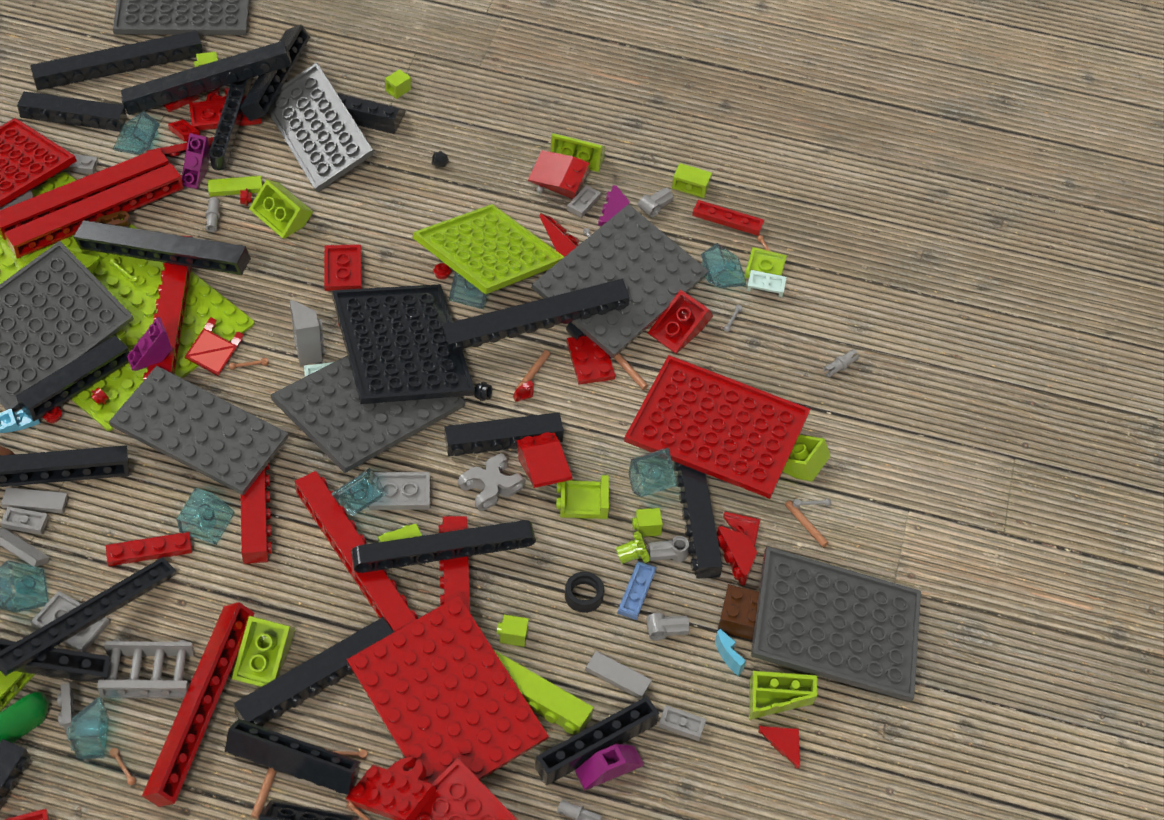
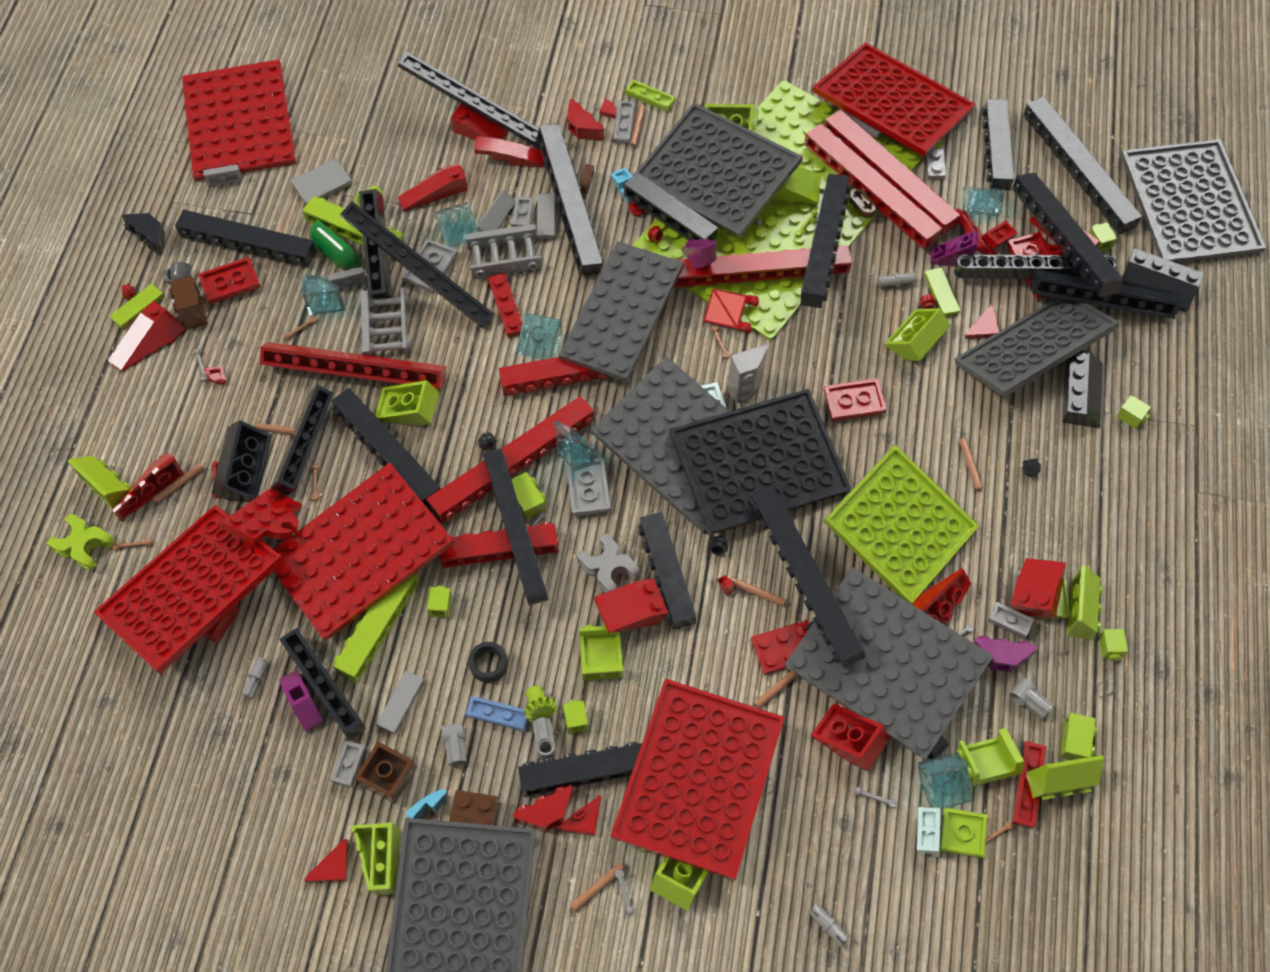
camera: 90 degrees right, 10 degrees up
(57, 534) = (499, 237): none -> light grey fence
(263, 31) = (1162, 275): none -> black slope
(280, 162) = (985, 326): none -> tile
(327, 576) = (487, 441): none -> black plate
(426, 200) = (970, 463): none -> nougat bar
(614, 142) = (1113, 644): none -> lime brick
(651, 473) = (626, 713): clear light blue slope -> none
(696, 683) = (386, 772): none -> reddish brown brick
(705, 231) = (992, 758): none -> lime panel
(727, 190) = (1065, 777): none -> lime slope

